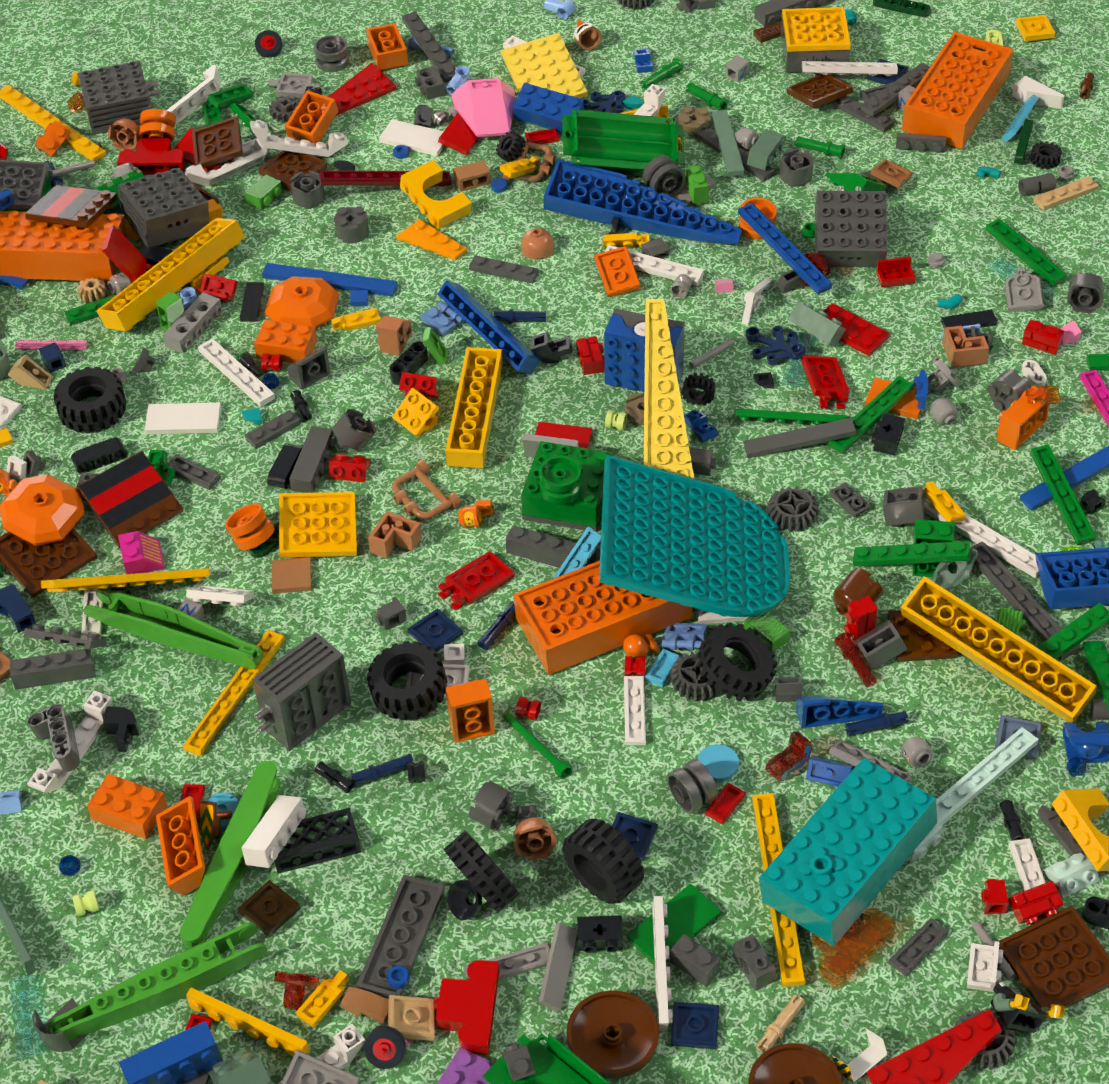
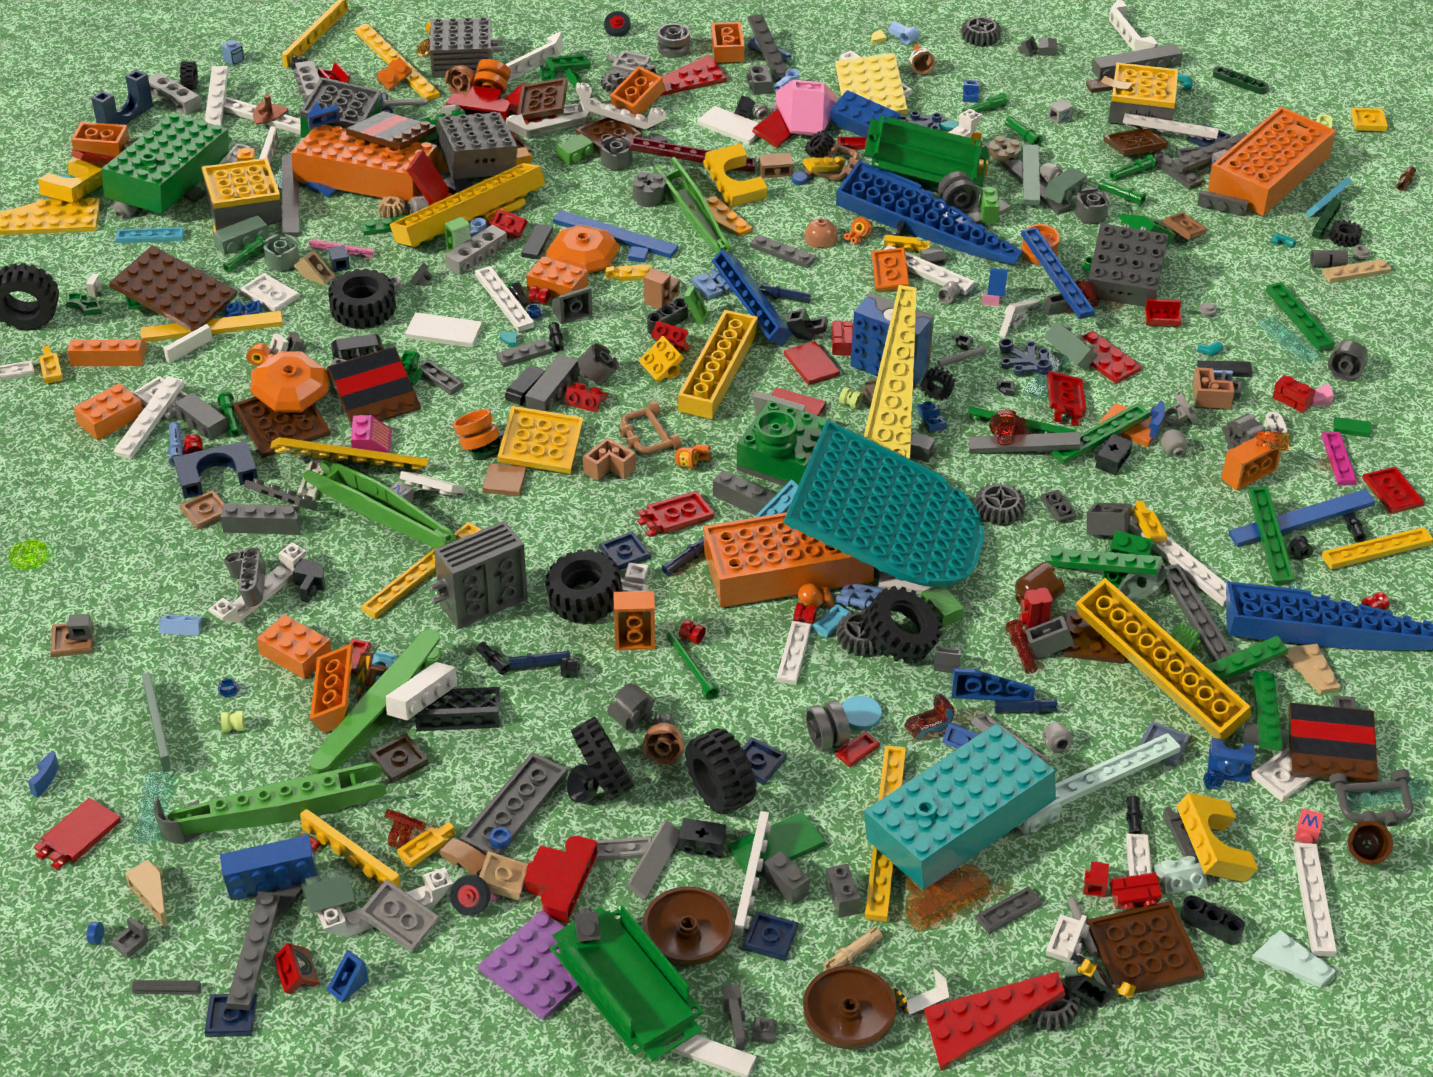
camera: 10 degrees right, 5 degrees down
(390, 614) = (586, 528): dark grey brick -> none
(401, 151) = (715, 135): blue tile -> none
(412, 246) = (701, 217): none -> bright green piece
(535, 15) = (878, 37): none -> light yellow tile
(566, 387) = (811, 363): none -> tile
(575, 231) = (860, 228): none -> orange piece
(709, 336) = (963, 341): none -> black tile
(728, 268) = (997, 282): none -> blue slope
(779, 421) = (1007, 423): none -> clear red tile
(787, 32) = (1114, 83): none -> tan sticker
(828, 116) = (1138, 166): none -> green pin
(1023, 292) = (1286, 351): light grey tile -> none
(1046, 96) = (1360, 180): white slope -> none

